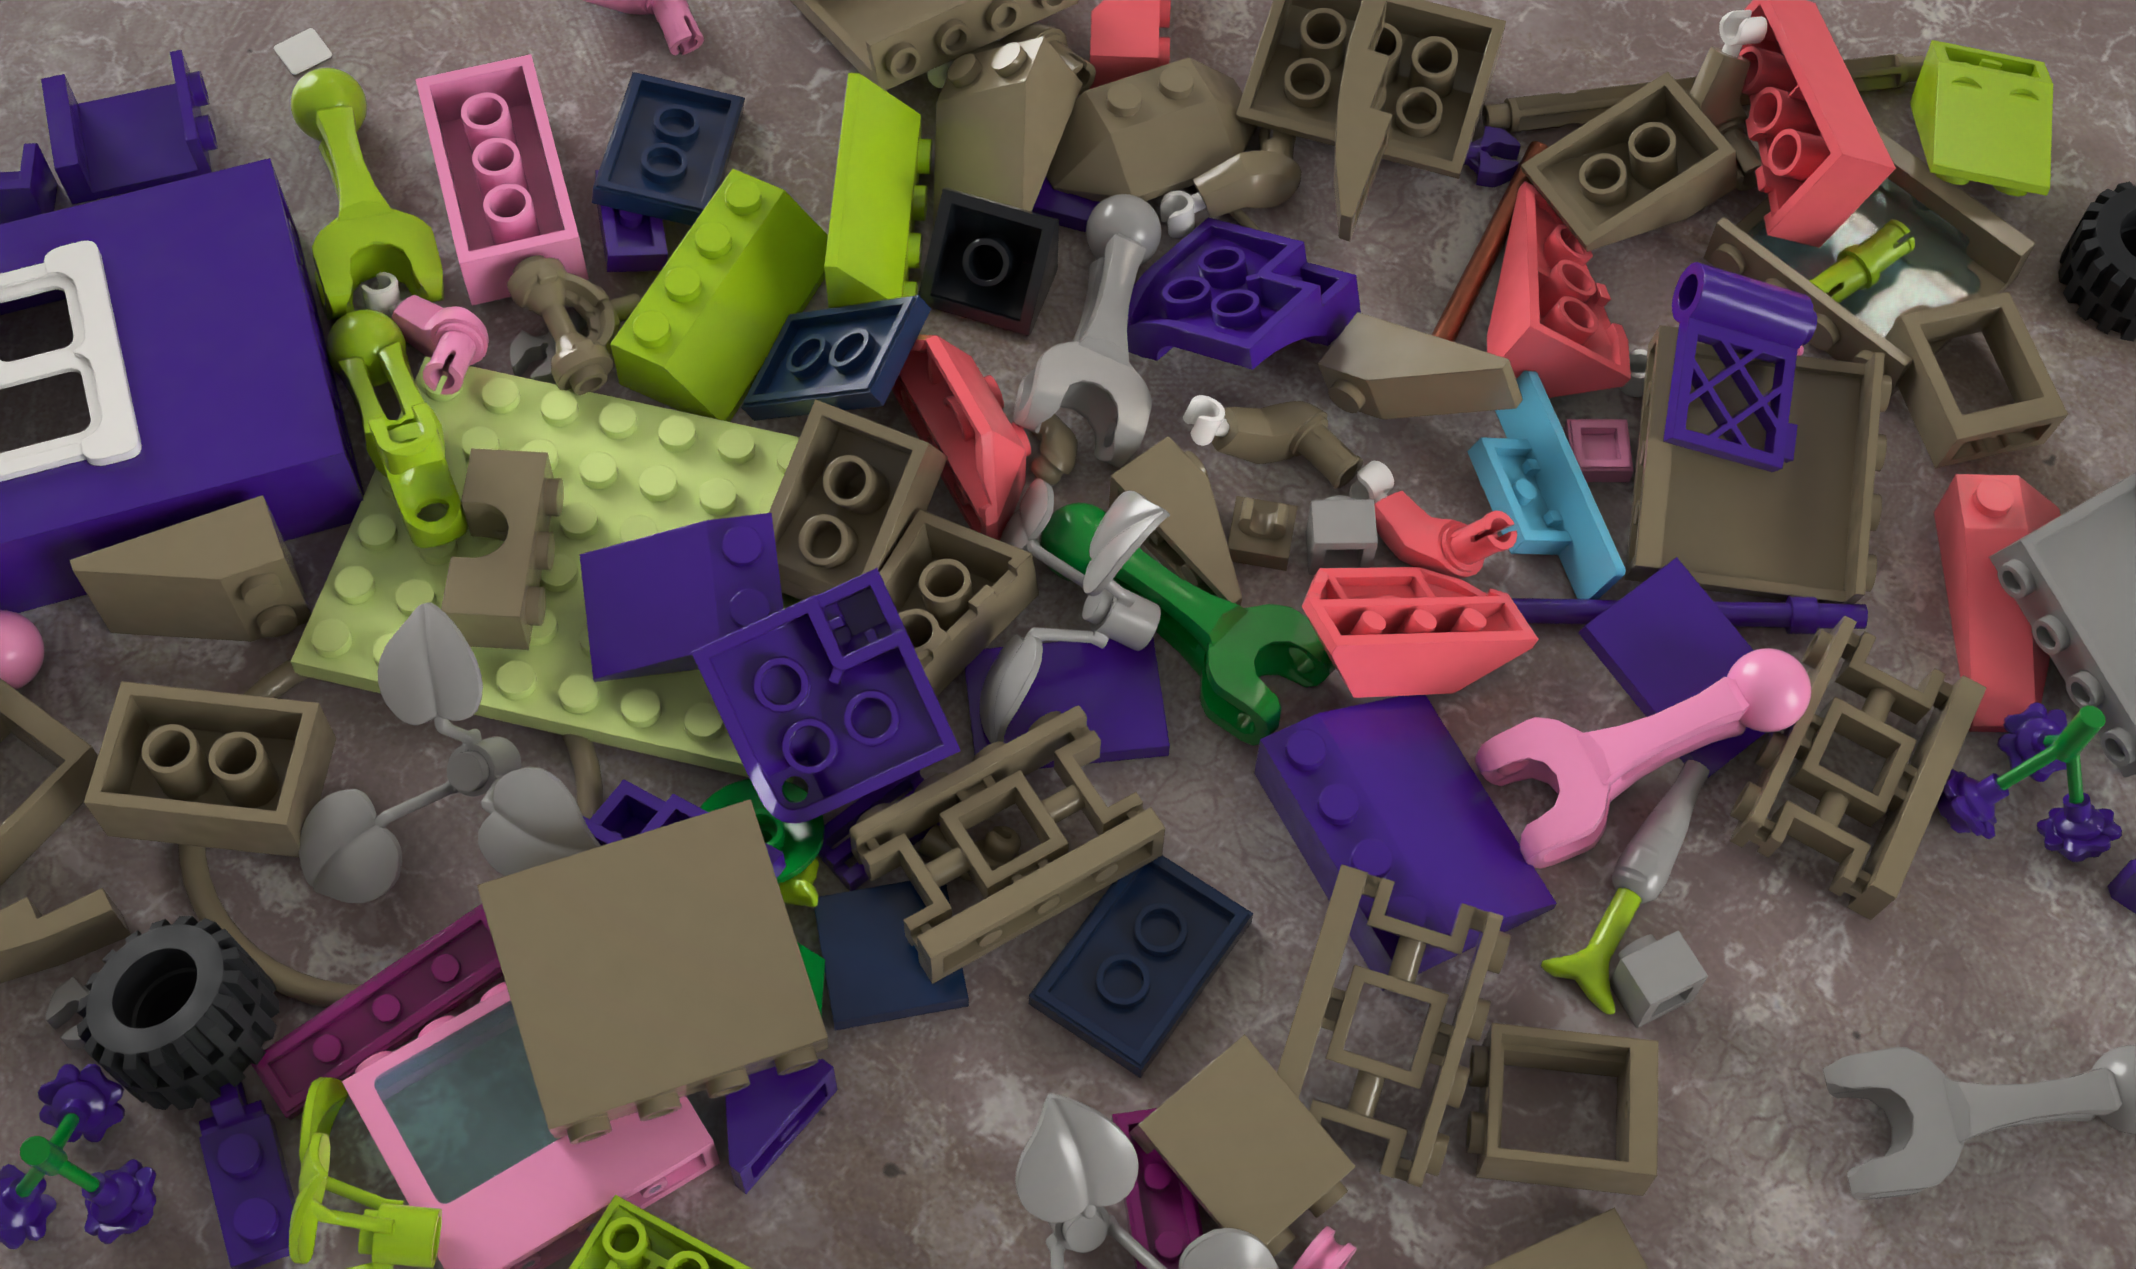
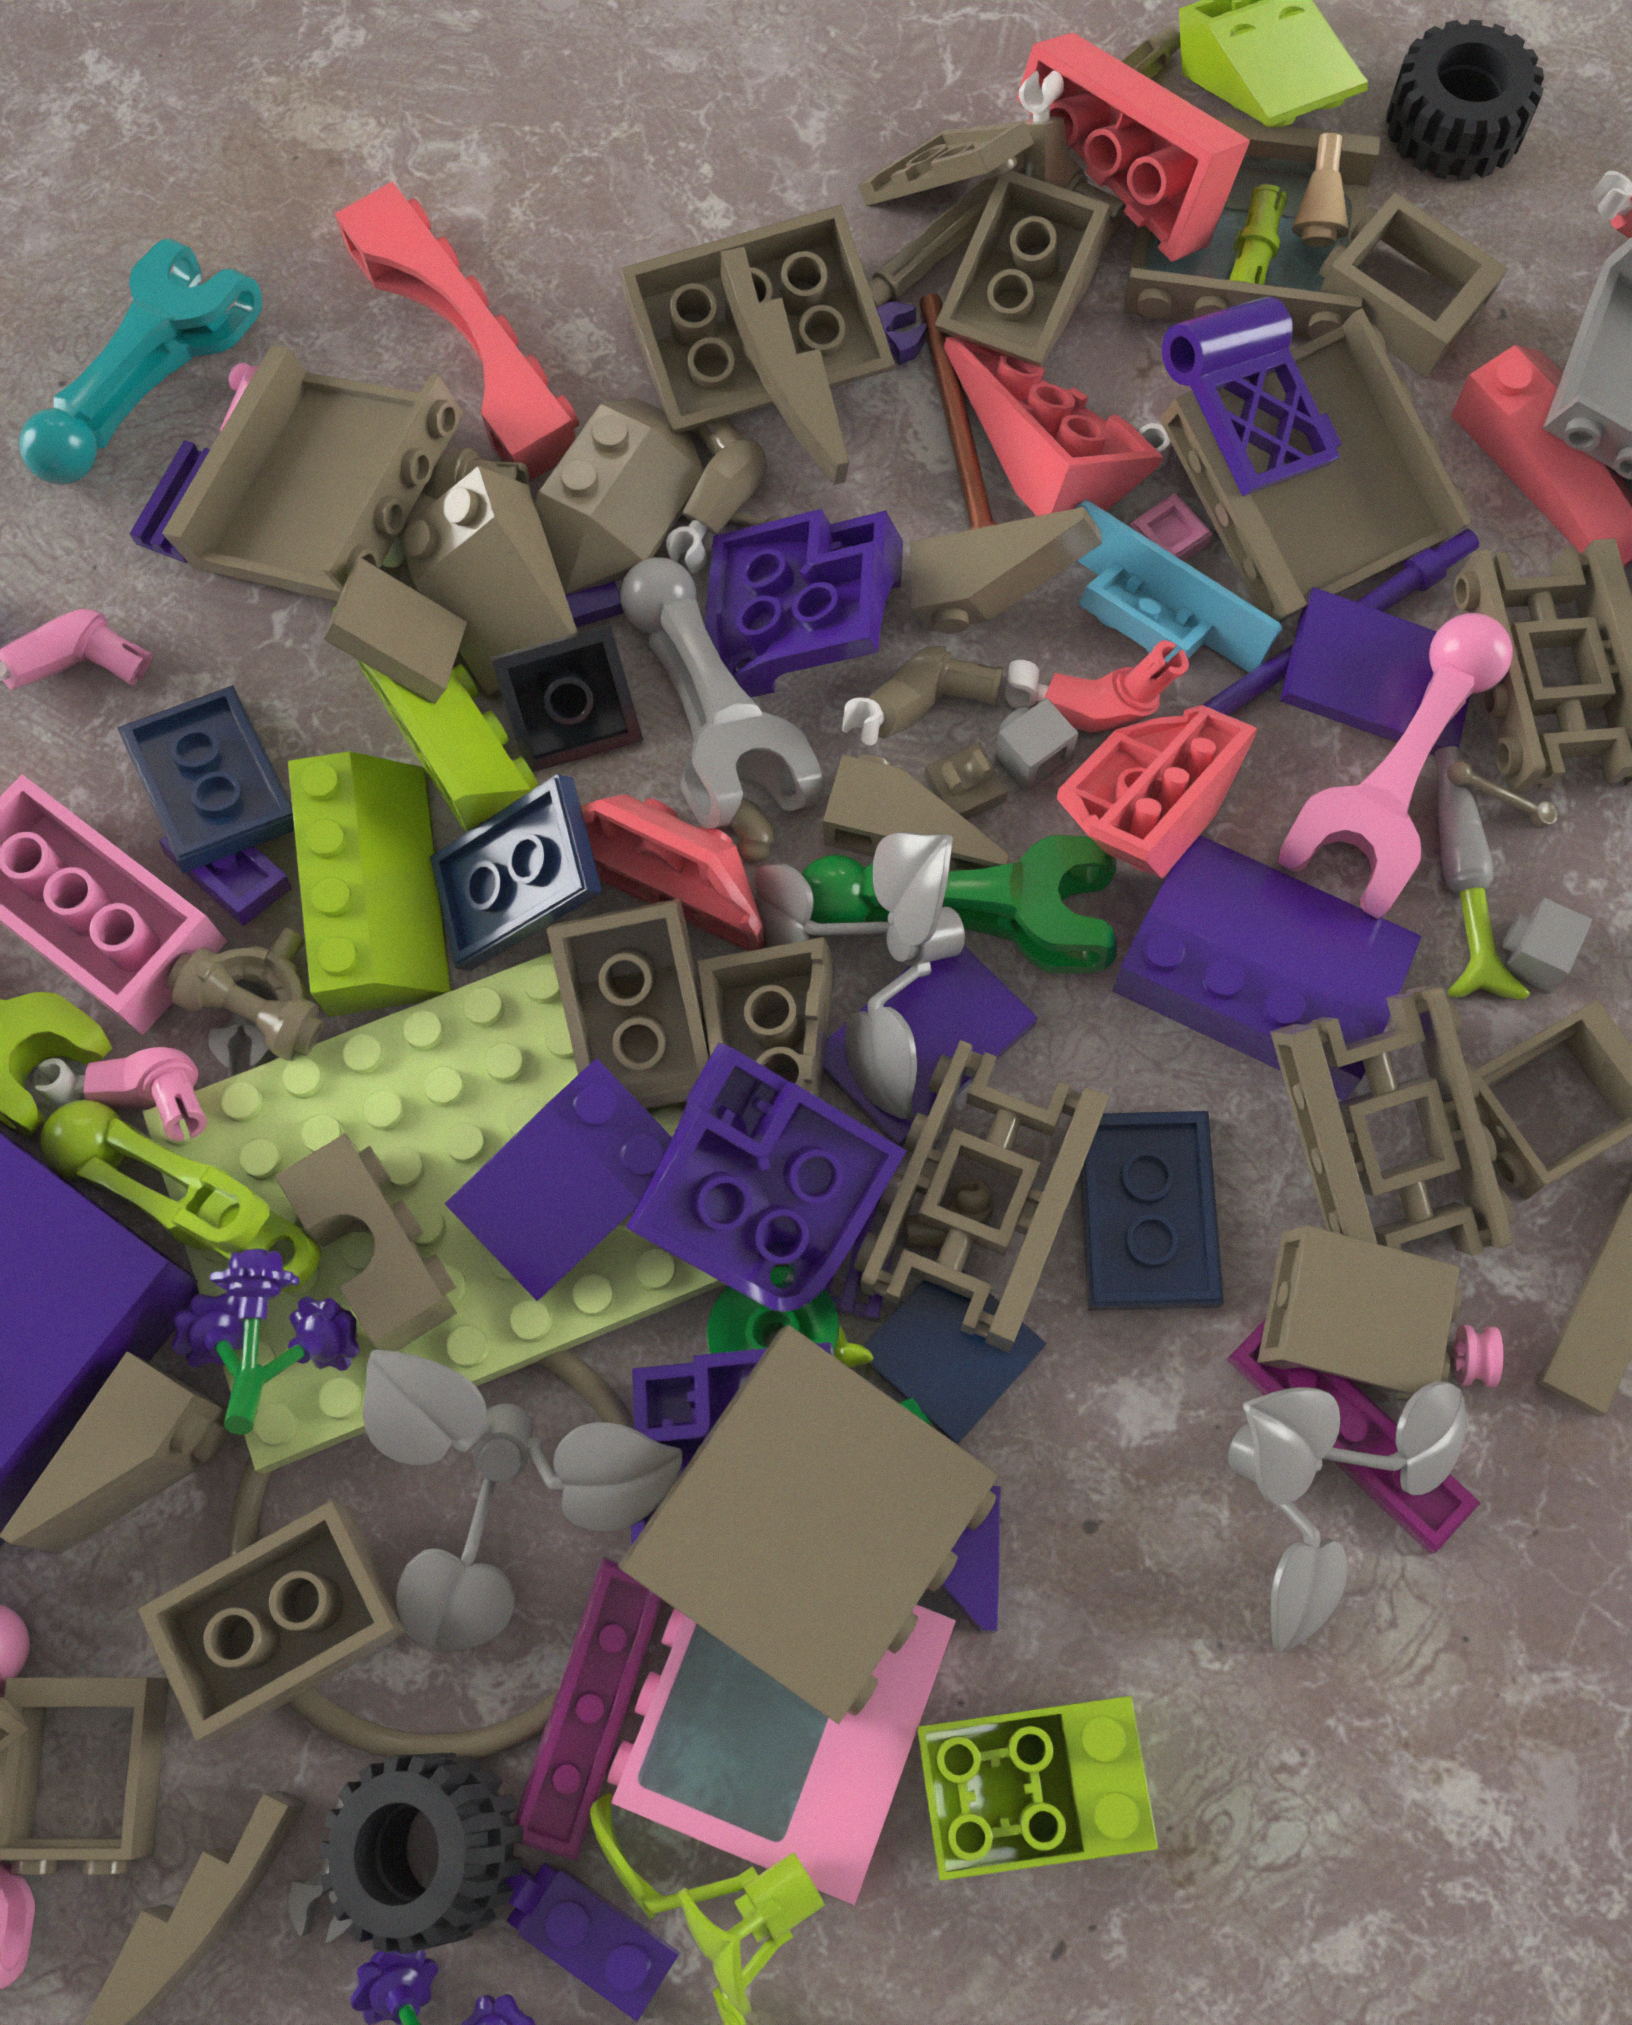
camera: 30 degrees left, 10 degrees up
(347, 532) = (231, 1322): none -> dark purple plant
(885, 119) = (396, 631): none -> dark tan tile
(1643, 46) = (950, 158): none -> dark tan wing
(1746, 877) = (1541, 814): none -> dark tan hinge
(1938, 271) = (1323, 208): none -> tan cone

